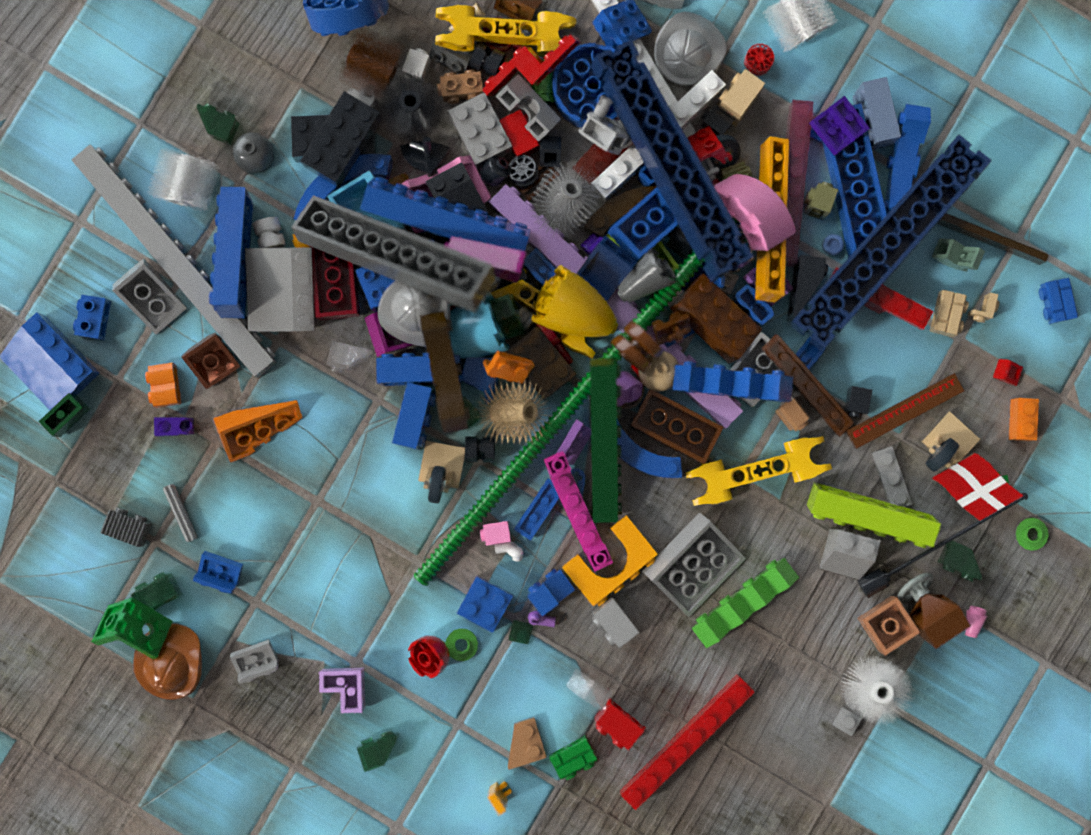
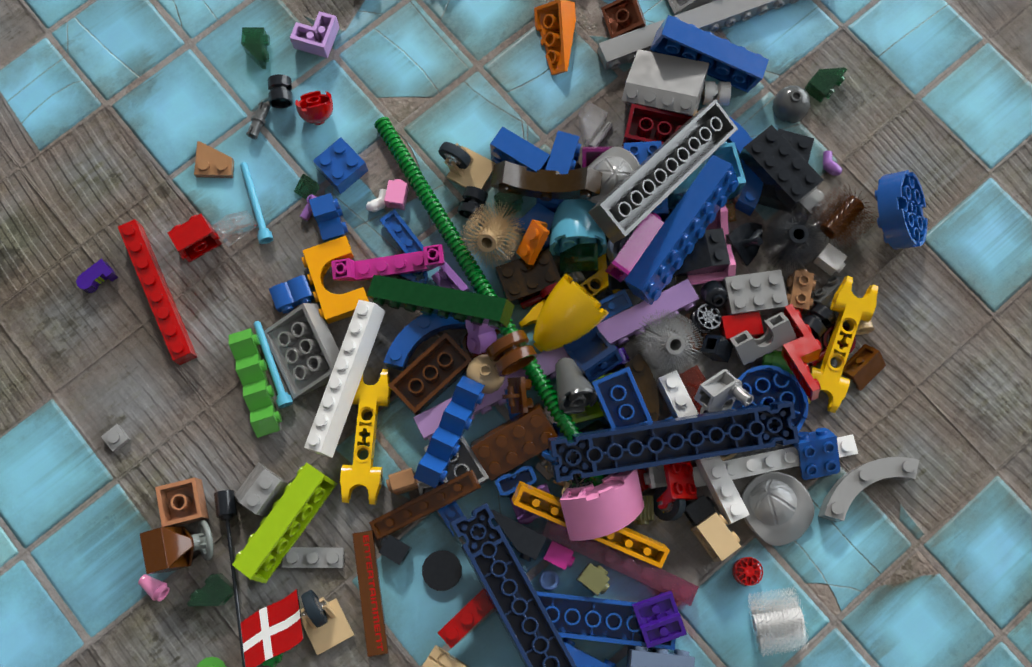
camera: 105 degrees right, 10 degrees down
(183, 180) = (783, 35): white piece -> none
(310, 94) = (829, 165): none -> medium lavender arm
(354, 341) = (601, 135): none -> light grey piece
(422, 702) = (280, 91): none -> black wheel
(462, 713) = (258, 120): none -> dark grey pin
(470, 639) = (316, 146): bright green piece -> none
(498, 797) = (176, 120): light orange hinge -> none
(573, 758) = (184, 195): green brick -> none
(587, 655) = (264, 235): none -> medium azure piece
(615, 623) = (281, 263): light grey brick -> none
(640, 600) = (291, 294): none -> blue brick
(696, 817) = (95, 276): none -> dark purple leg
(713, 508) = (345, 379): none -> white brick
(749, 568) = (283, 399): none -> medium azure piece
(809, 241) = (559, 556): none -> dark pink brick
(860, 349) = (441, 570): none -> black tile
(878, 687) = (128, 469): white piece -> none

